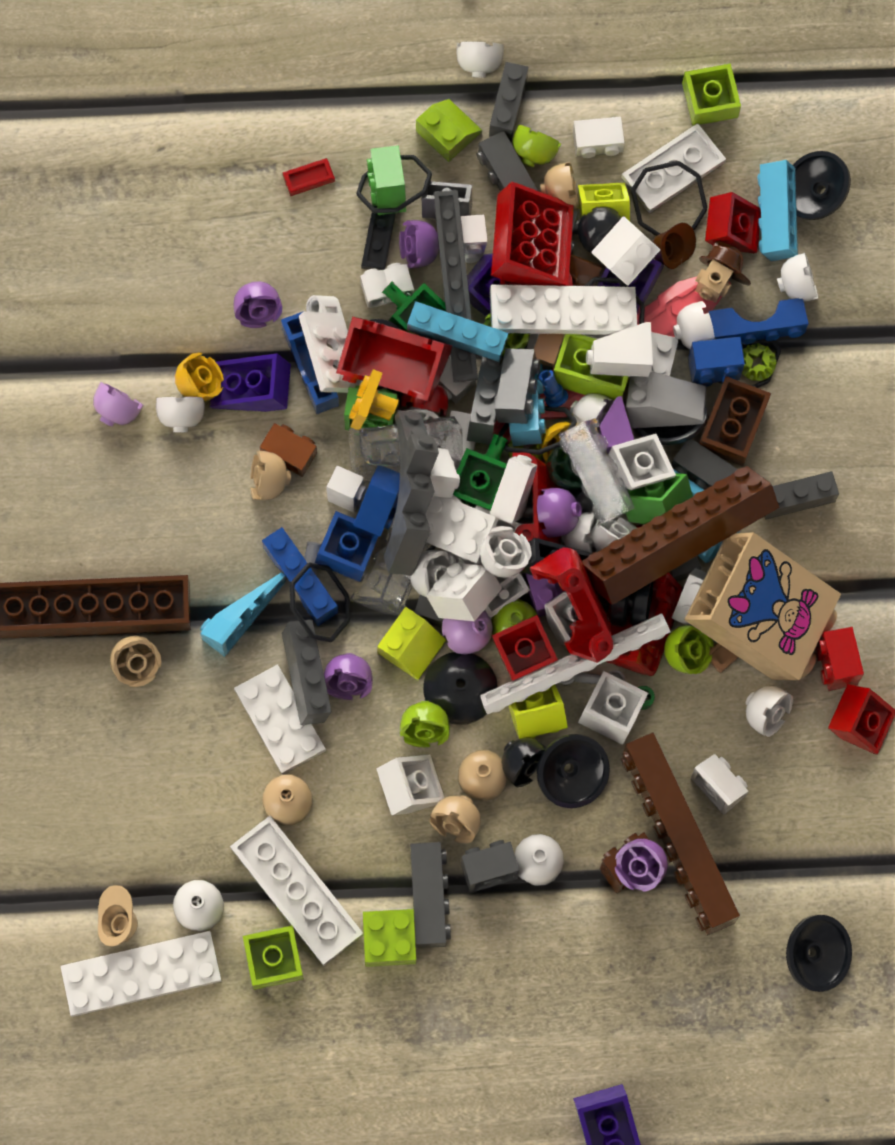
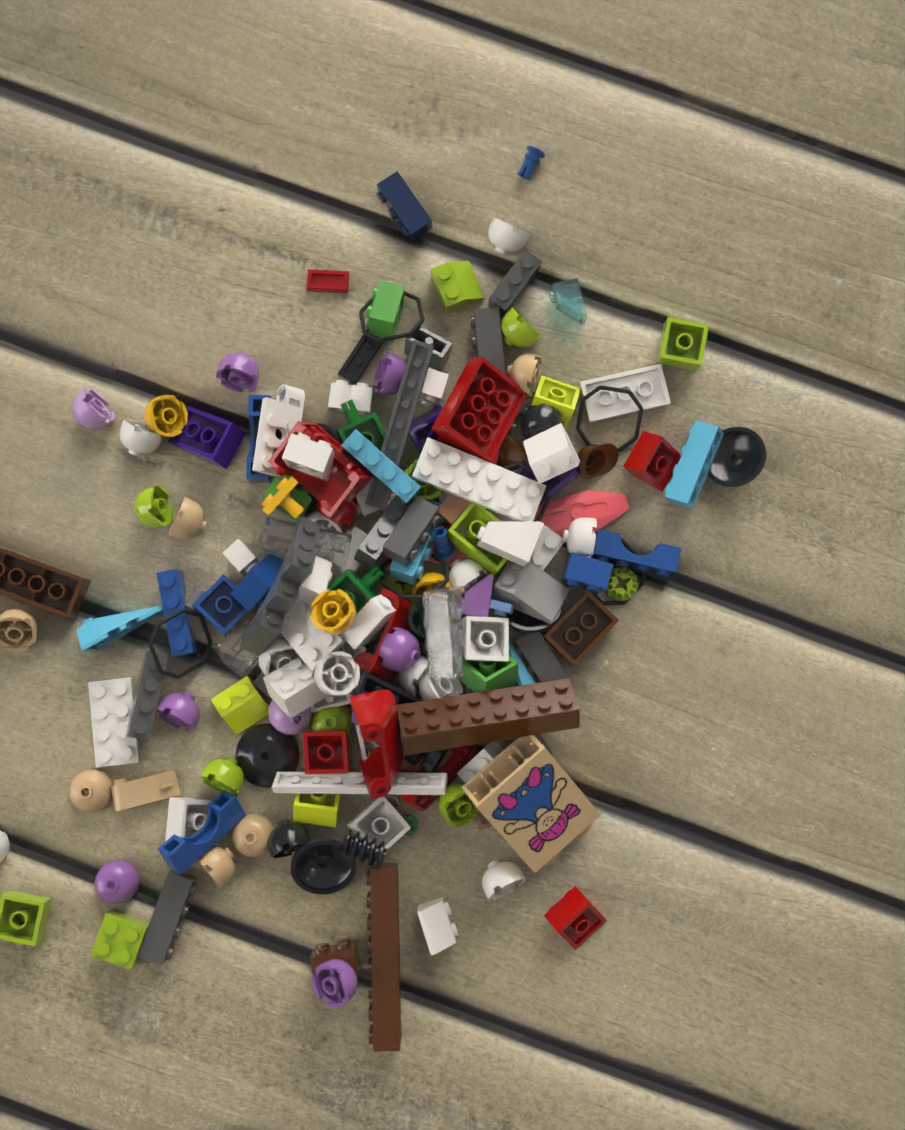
camera: 20 degrees right, 10 degrees up
(225, 479) = (153, 507): none -> lime cylinder
(294, 450) = (213, 503): dark orange brick -> none
(296, 890) = (66, 868): white plate -> none
(333, 782) = (144, 790): none -> tan door
(357, 69) = (403, 206): none -> dark blue brick
(357, 883) = (117, 882): none -> medium lavender cylinder
(379, 348) = (309, 456): none -> white slope
(443, 761) = (222, 816): none -> blue arch
(476, 488) = (333, 612): none -> yellow cylinder
(489, 866) = (222, 917): dark grey brick -> none
(539, 859) = (267, 923): white cylinder -> none
(573, 97) = (569, 299): none -> clear light blue slope
(598, 137) = (575, 342): white brick -> none
(609, 724) = (362, 847): none -> black piece
(644, 427) = (501, 608): none -> medium blue plate
(713, 281) = (619, 500): tan brick -> none
(729, 257) = (634, 488): reddish brown piece -> none
(798, 279) = (684, 530): white cylinder -> none
(805, 494) = (609, 711): dark grey brick -> none
(828, 957) = (454, 1099): black dish -> none
(839, 659) = (577, 865): red brick -> none

